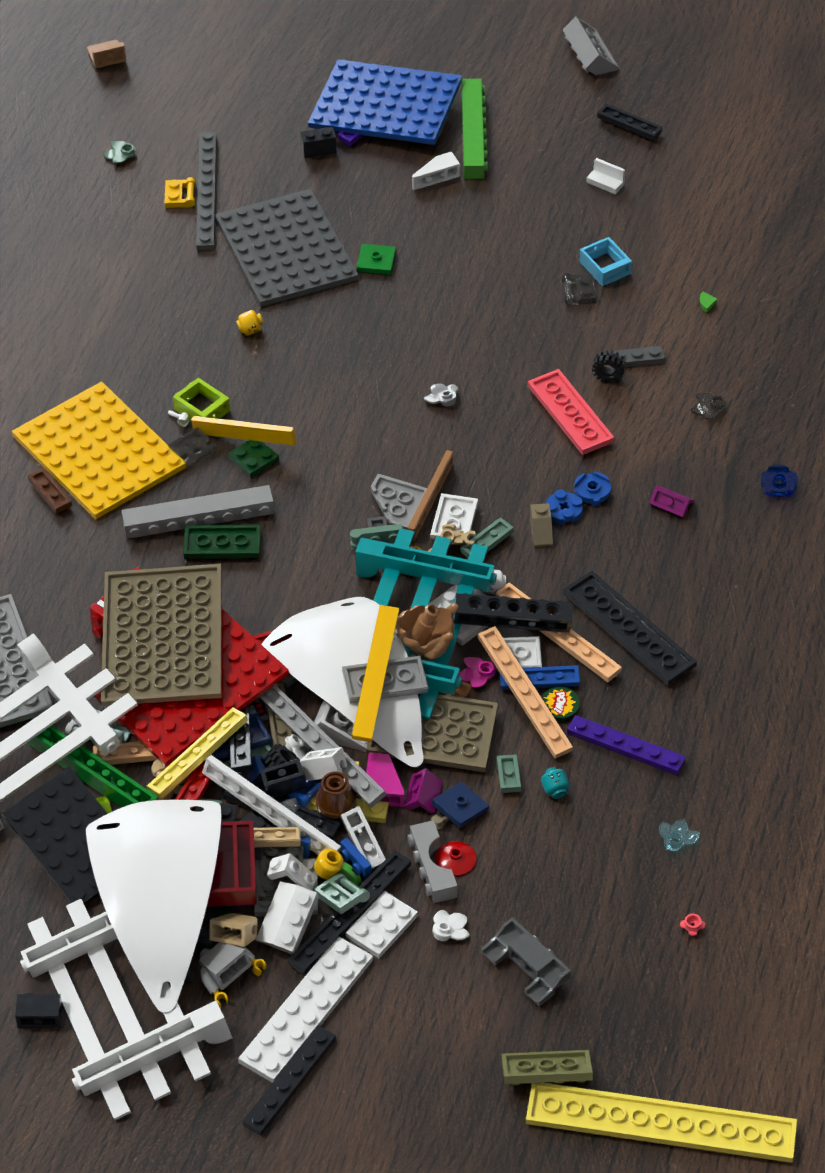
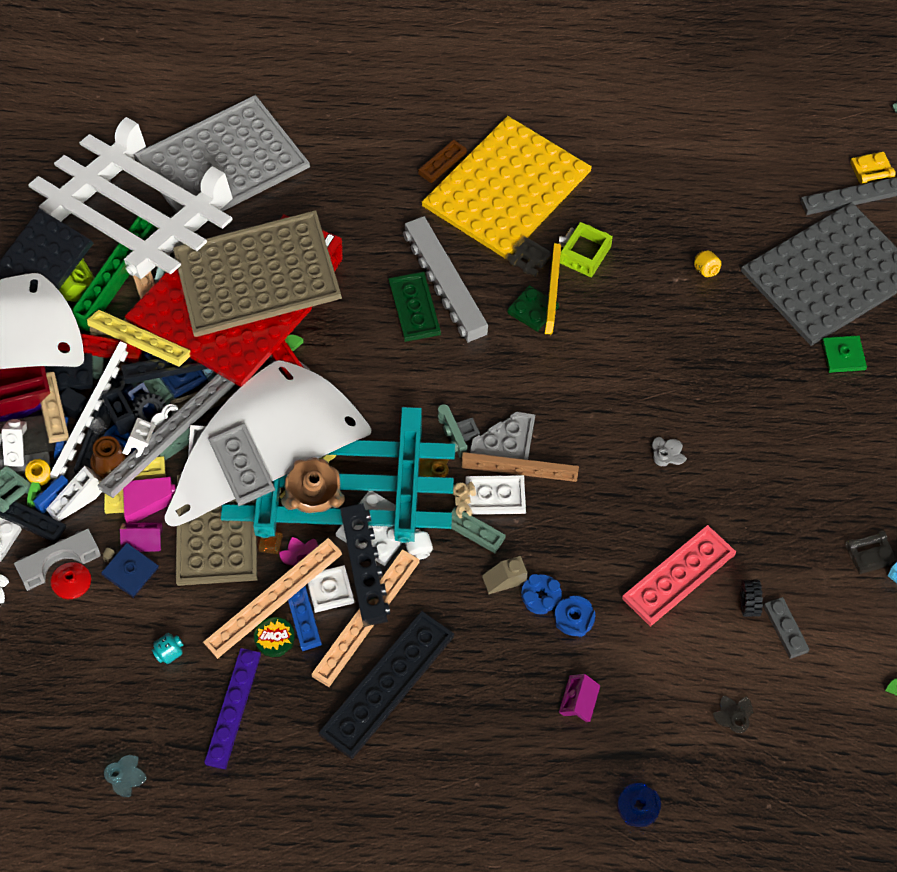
camera: 75 degrees right, 10 degrees up
(375, 673) = (239, 451): yellow tile -> none
(508, 773) = (175, 605): sand green plate -> none
(692, 919) = (14, 801): coral plate -> none

